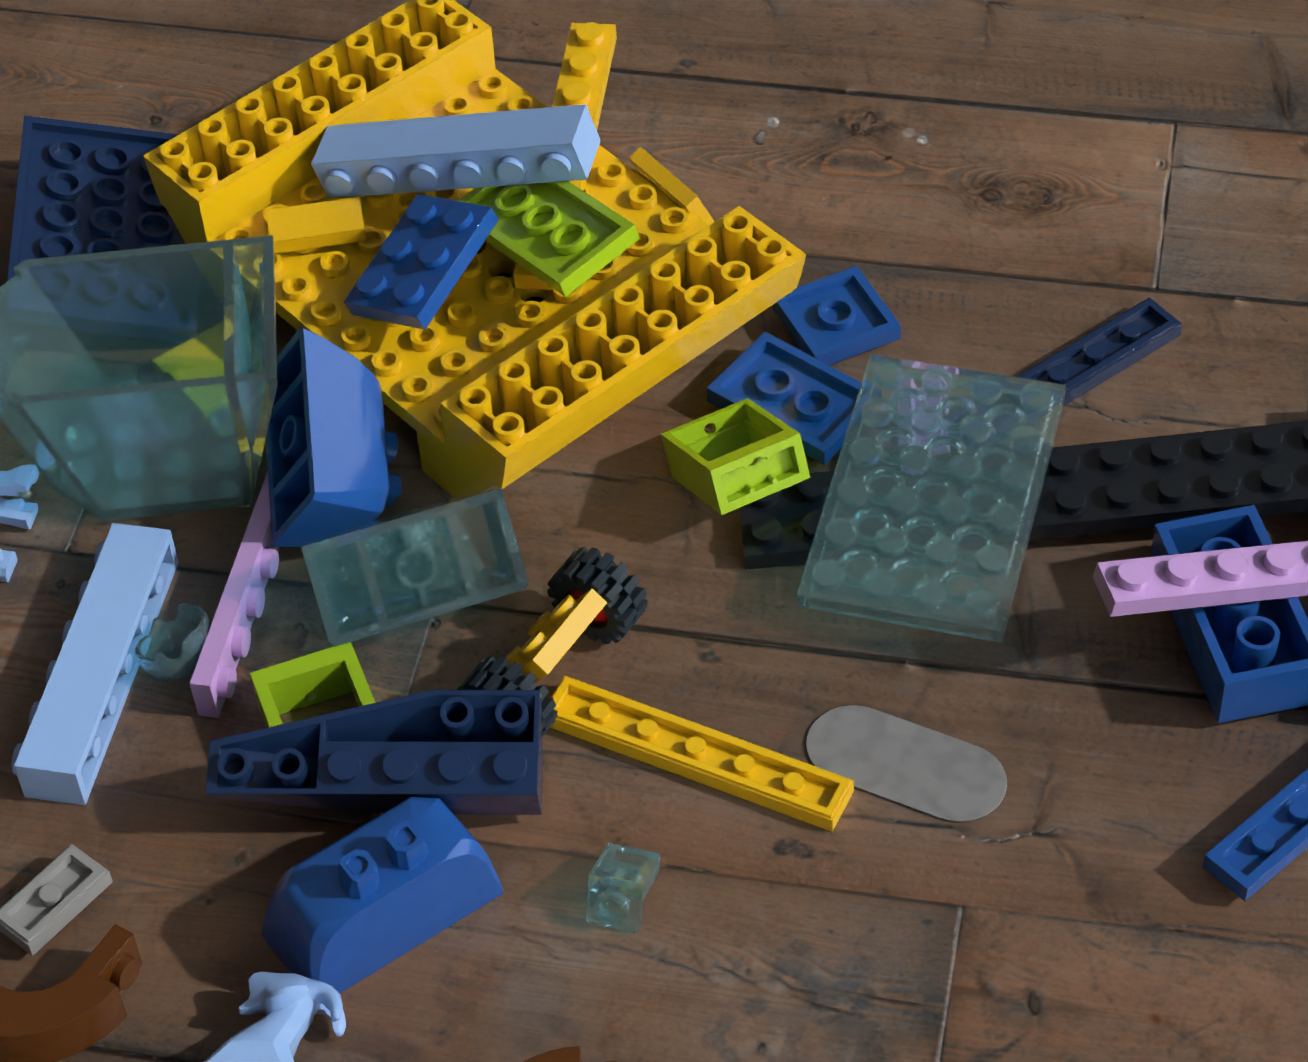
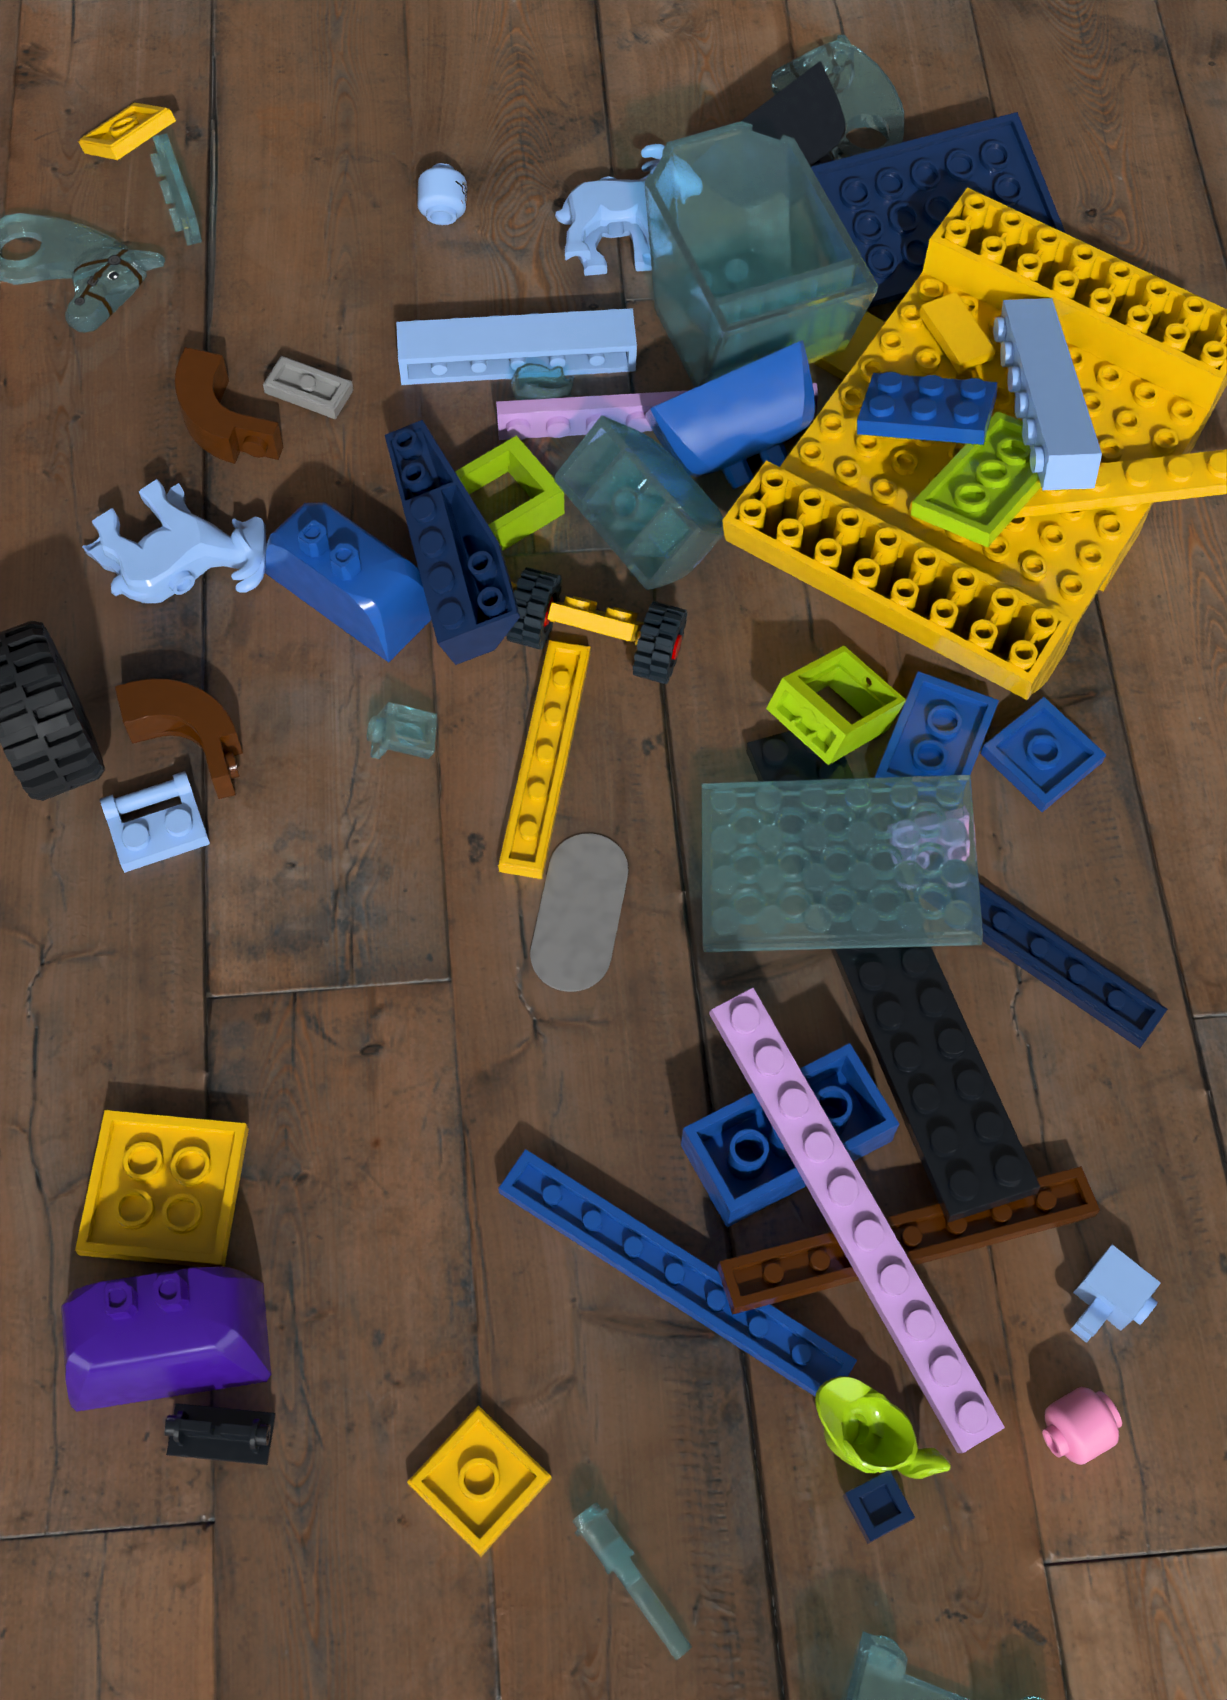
camera: 70 degrees right, 15 degrees up
(669, 184) = (1120, 593): yellow tile -> none

